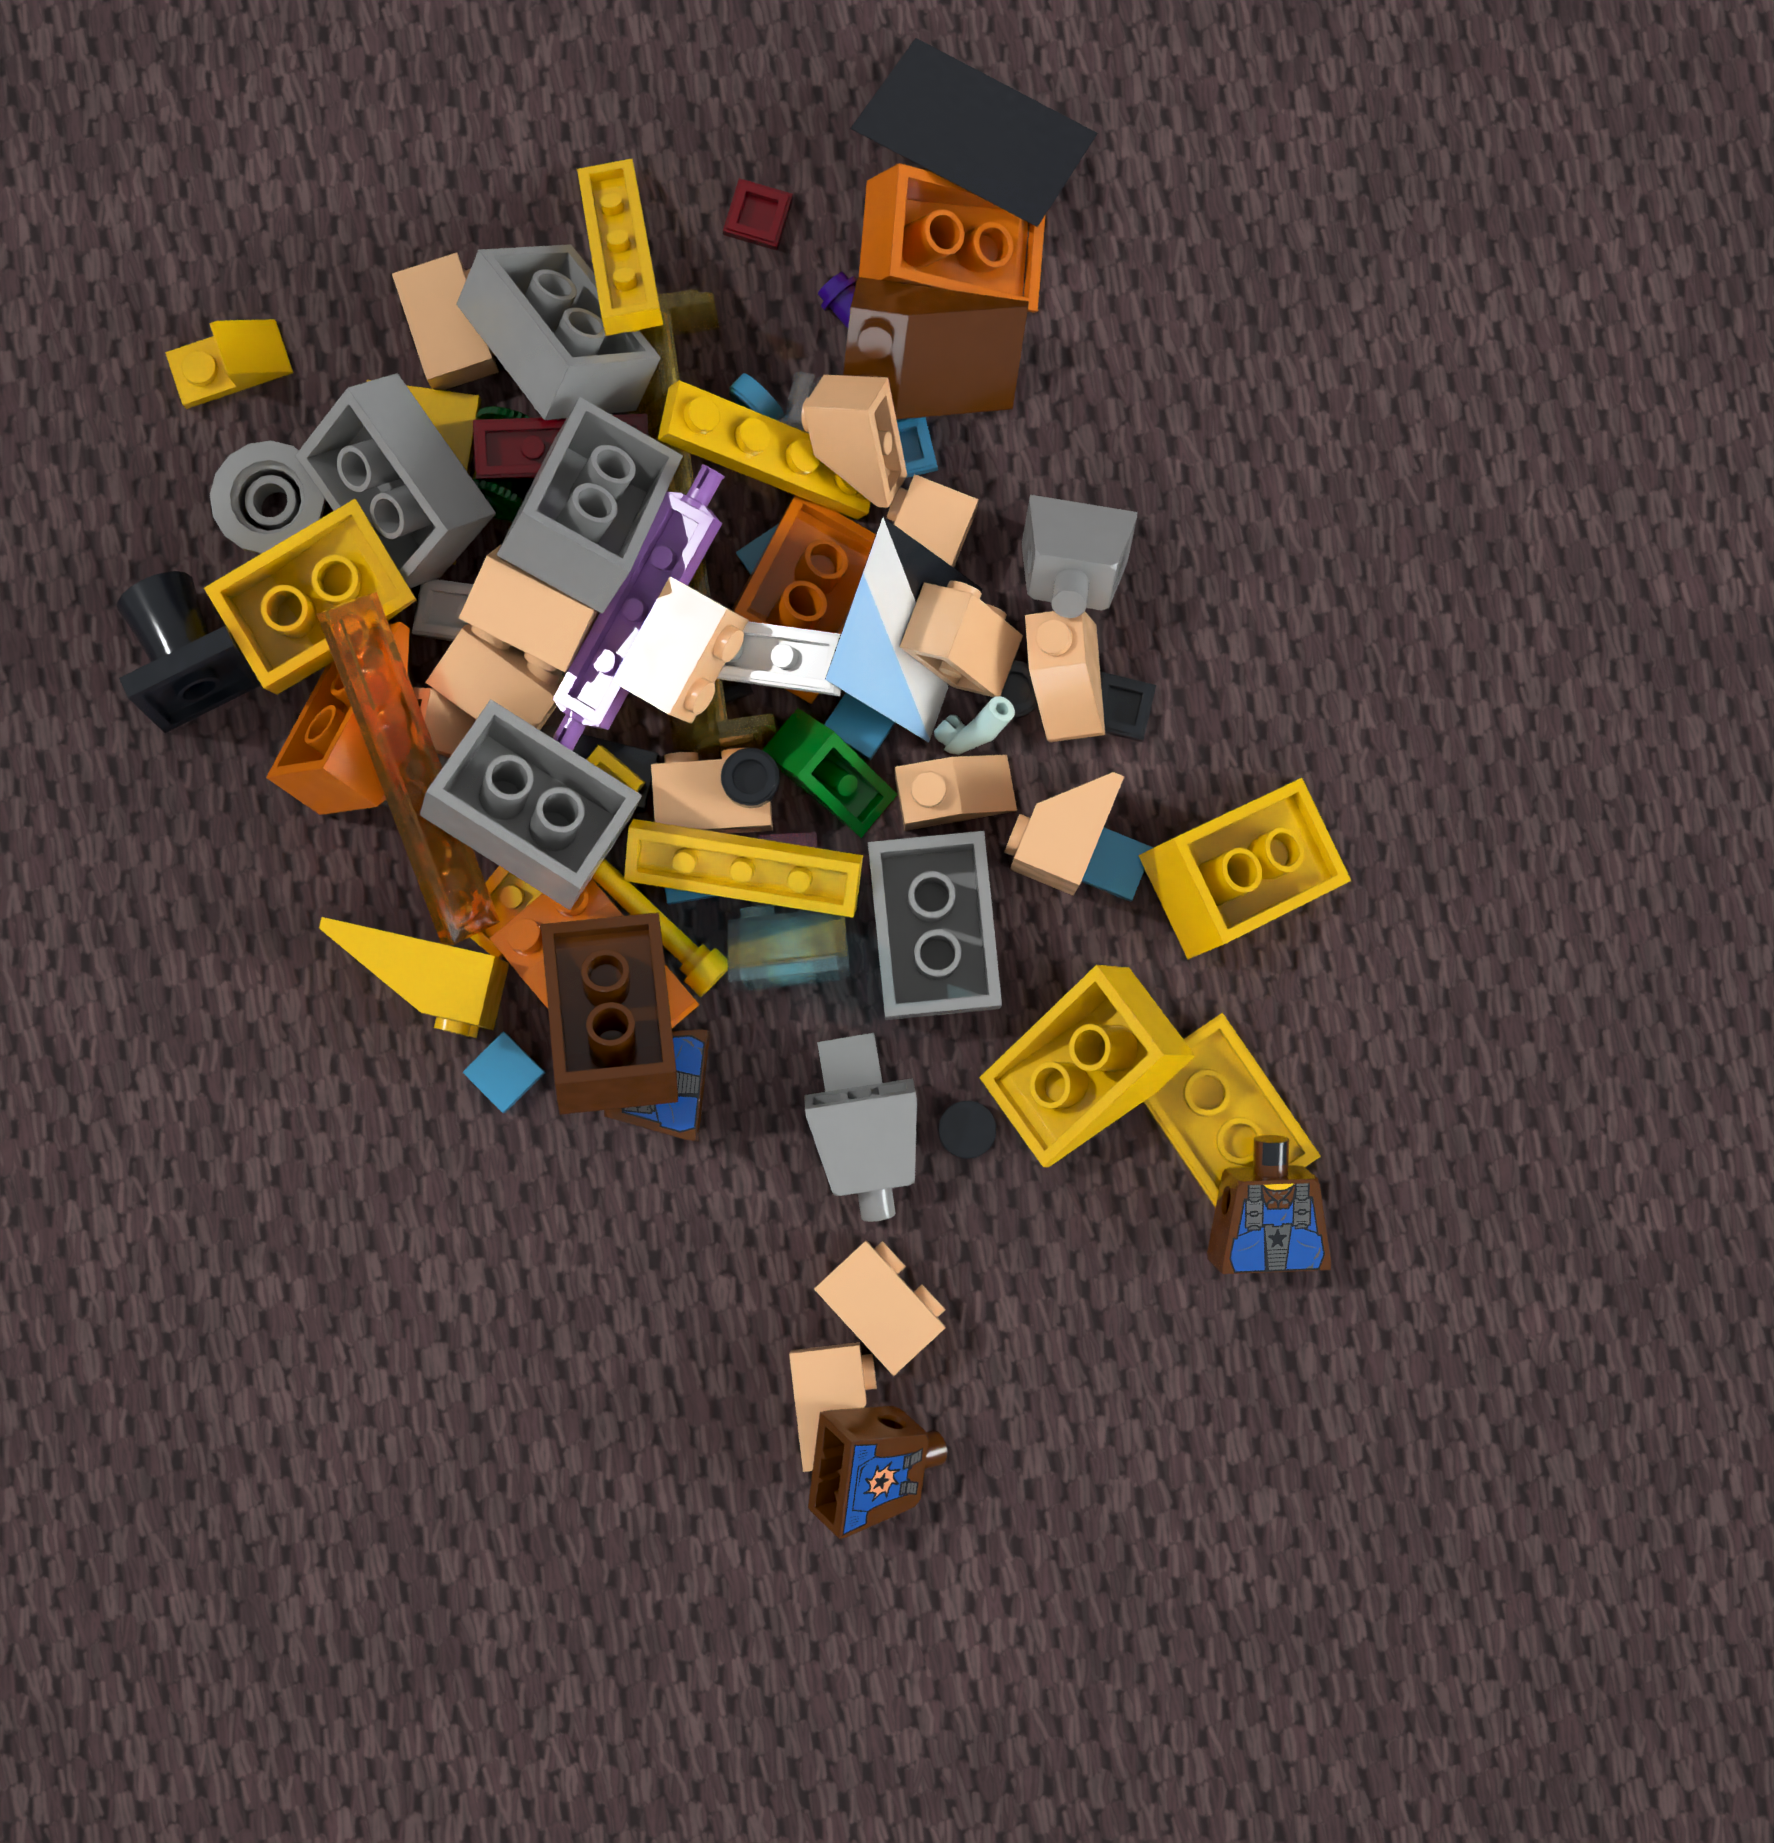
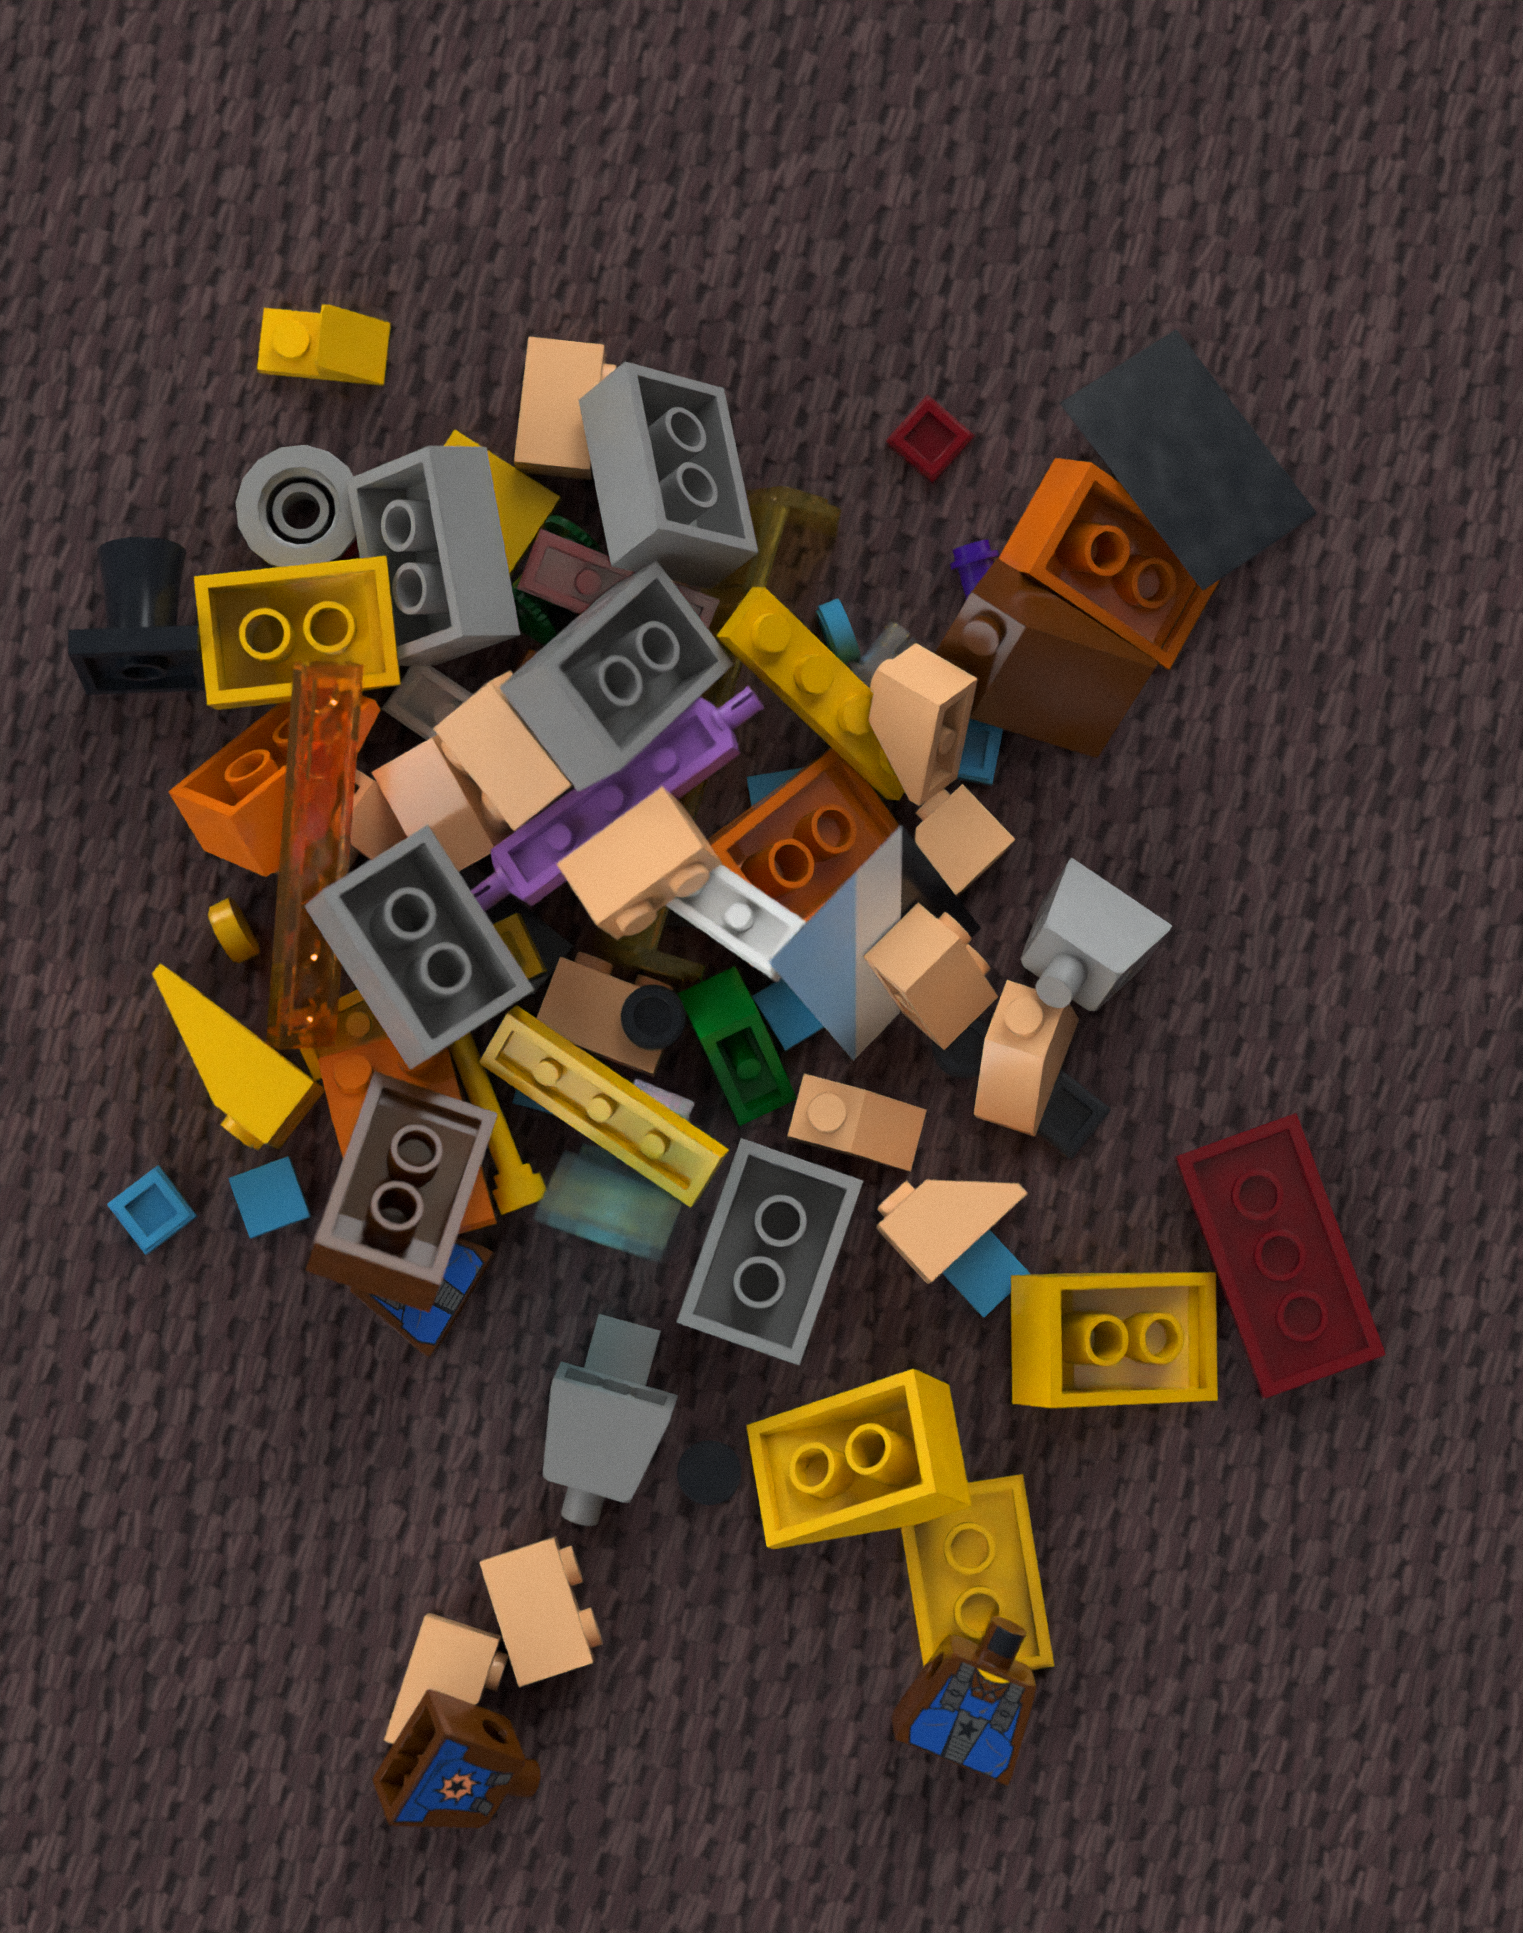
camera: 25 degrees right, 0 degrees up
(373, 868) = (233, 930): none -> yellow tile
(412, 1127) = (152, 1210): none -> dark azure tile
(619, 247) = (770, 416): yellow plate -> none
(979, 731) = (910, 1073): light aqua arm -> none
(1347, 740) = (1279, 1256): none -> dark red plate

